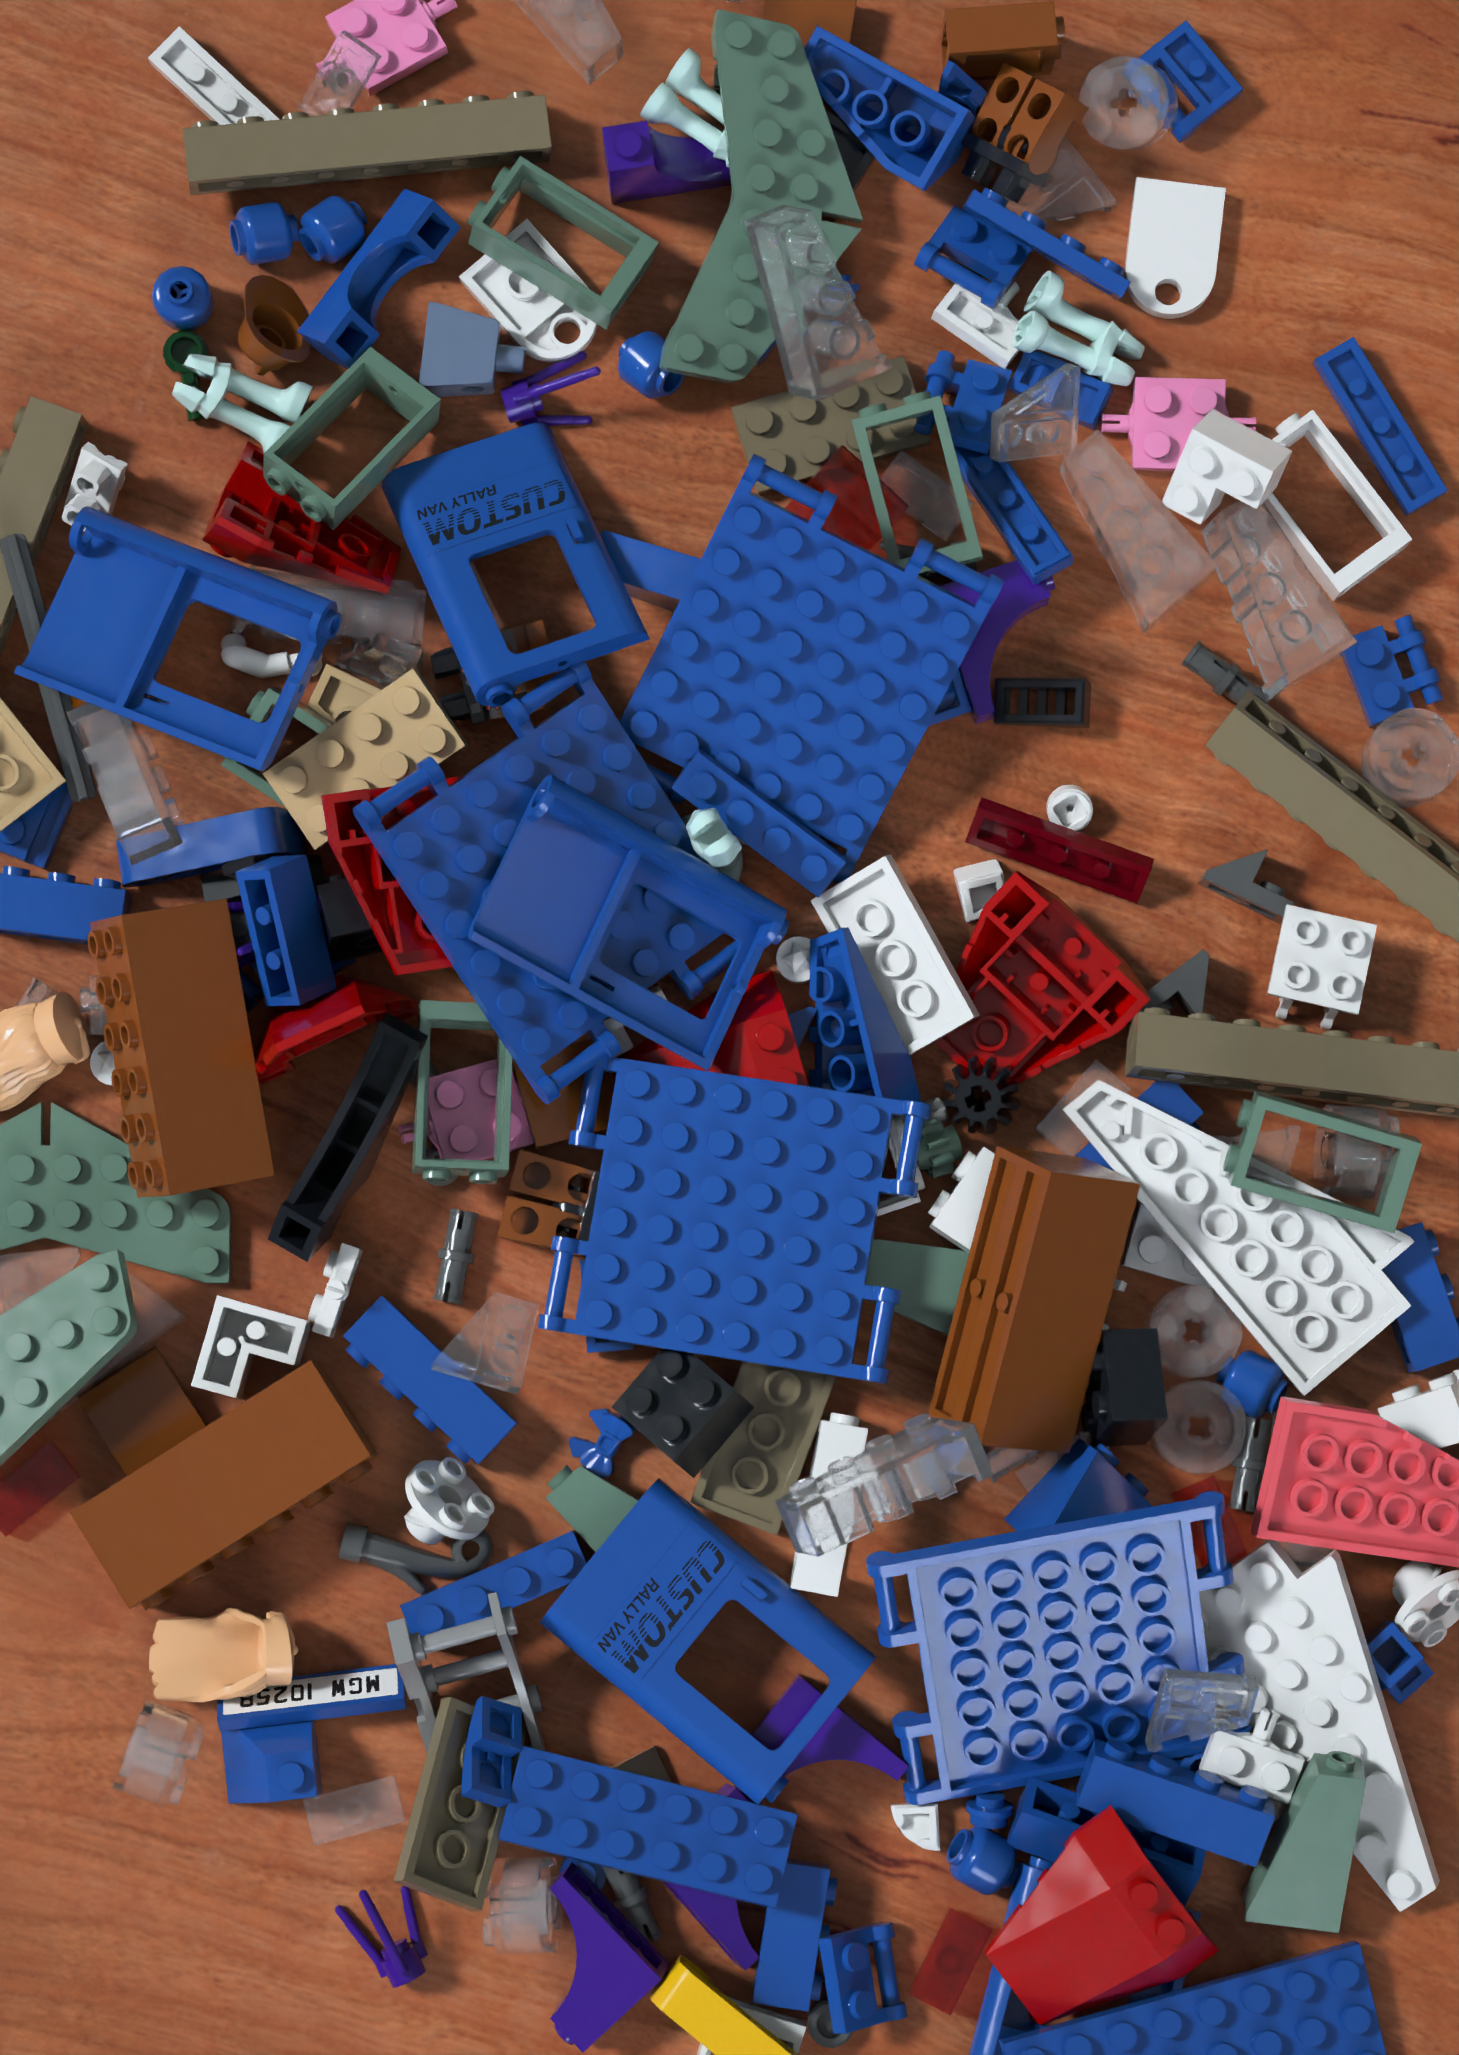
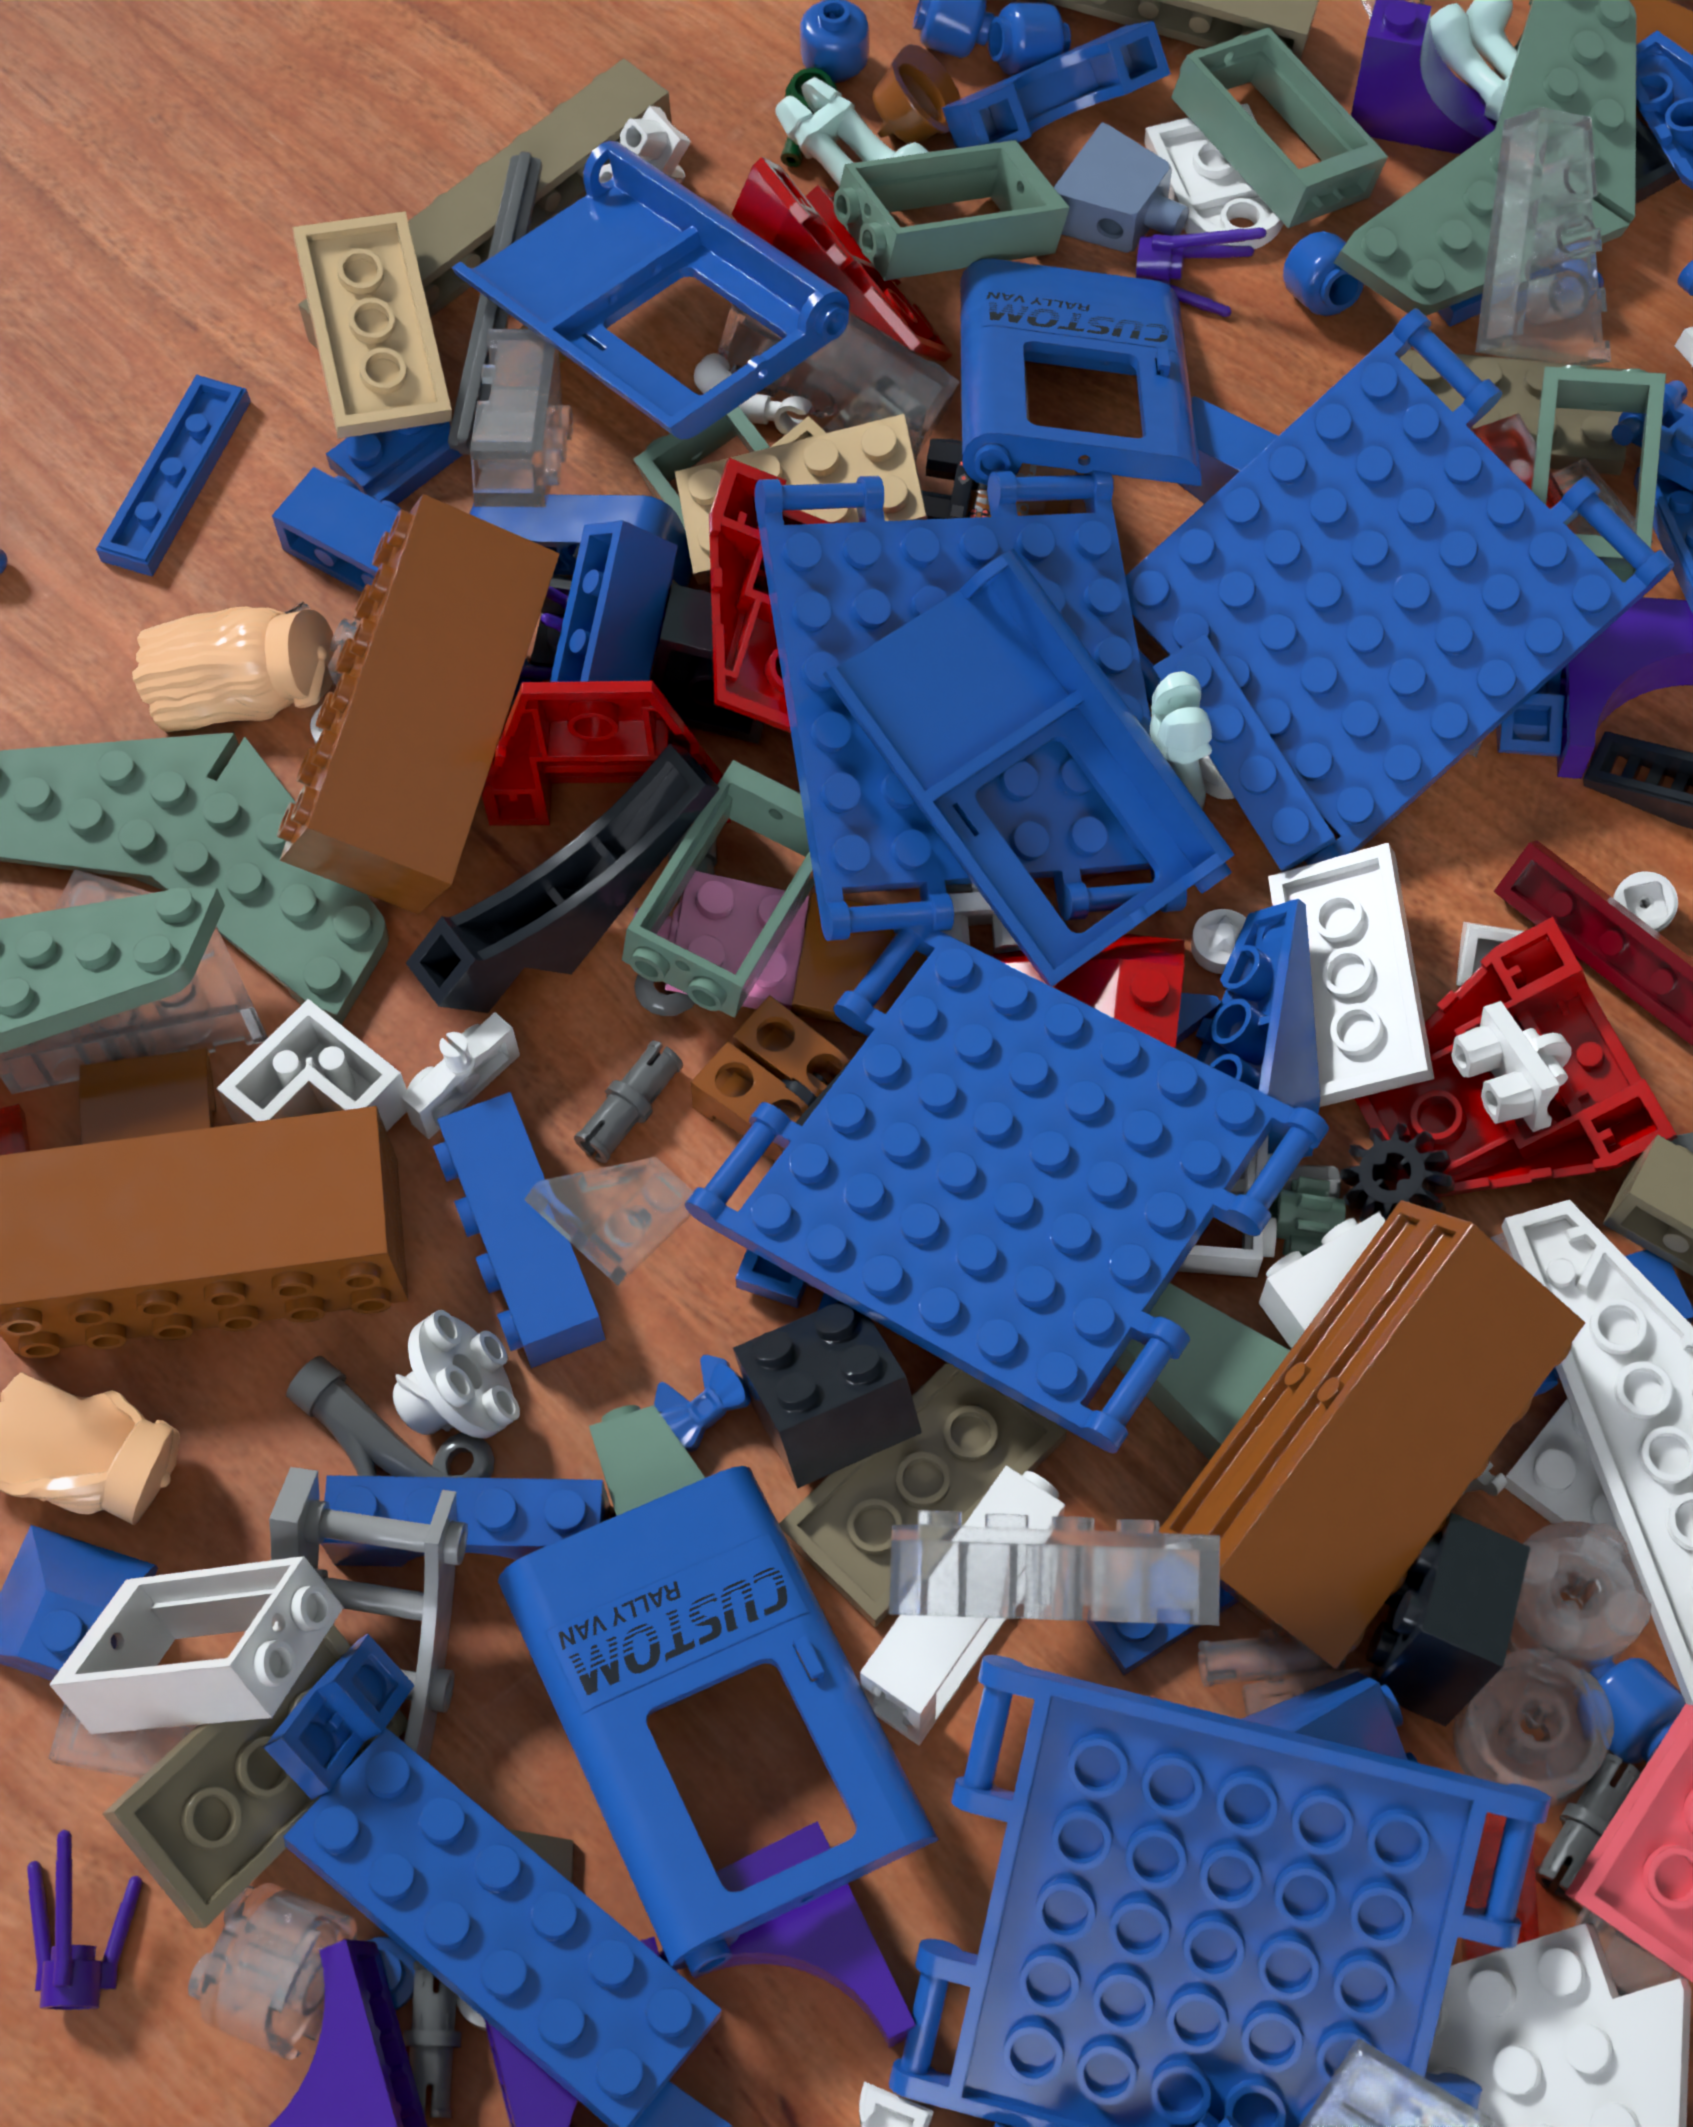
camera: 30 degrees right, 20 degrees down
(317, 1698) = (115, 1546): tile -> none
(333, 1745) = (122, 1689): none -> white window
(1042, 1006) = (1523, 1064): none -> white hips

